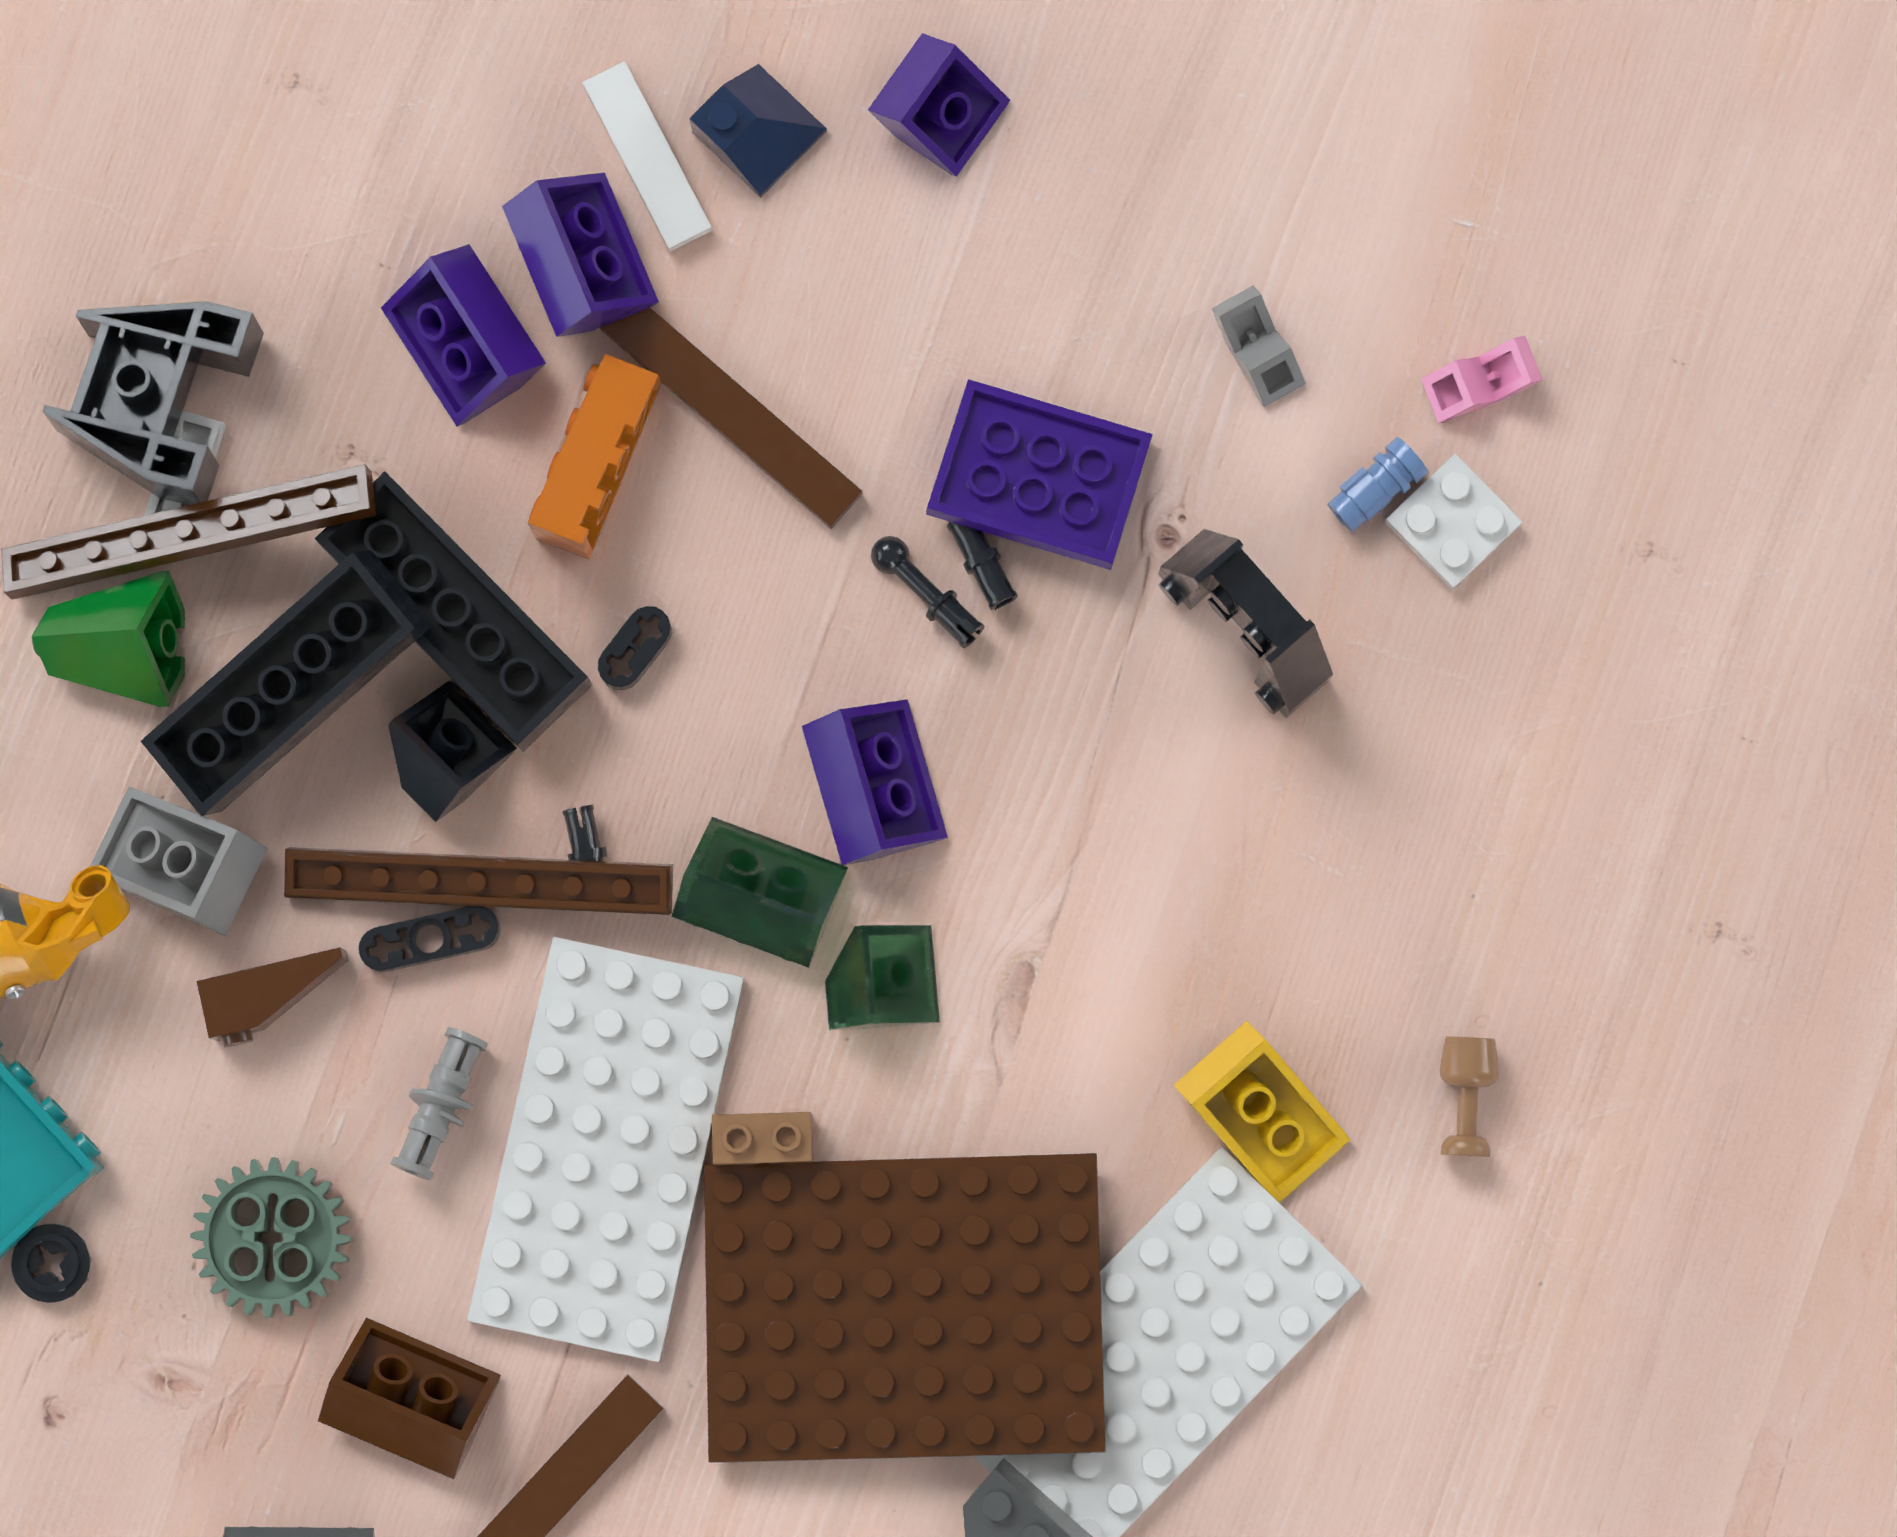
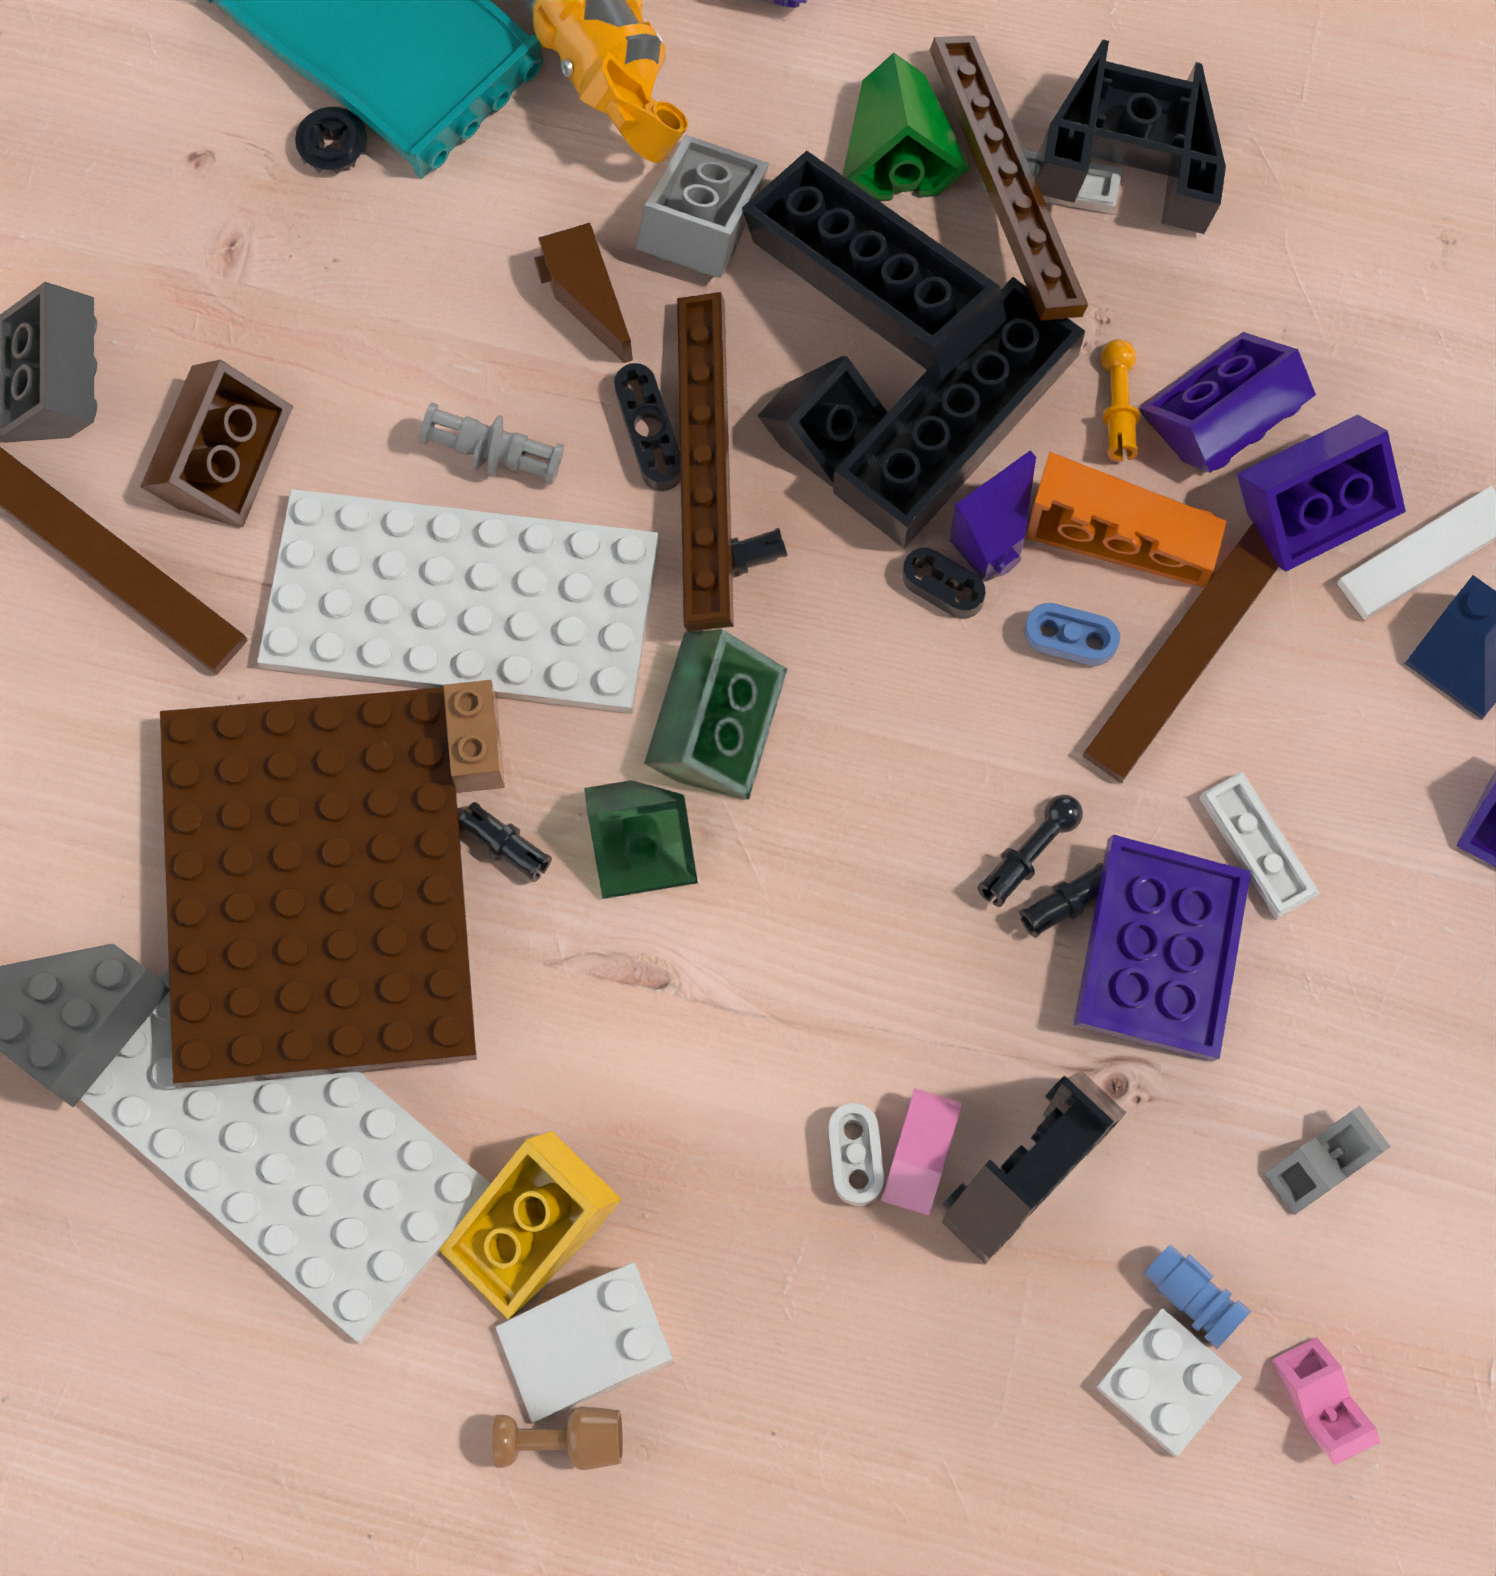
camera: 85 degrees right, 10 degrees down
(227, 1236) = (360, 350): sand green gear -> none
(399, 441) = (1118, 360): none -> light orange pin
(583, 584) = (993, 519): none -> dark purple slope
(703, 525) = (1072, 631): none -> medium blue plate
(874, 781) = (835, 813): dark purple slope -> none
(874, 1115) = (504, 842): none -> black pin
(940, 367) = (1259, 845): none -> white tile
(1217, 790) = (856, 1155): none -> white plate
(1221, 728) = (921, 1151): none -> bright pink slope
(1379, 1065) = (584, 1343): none -> white slope

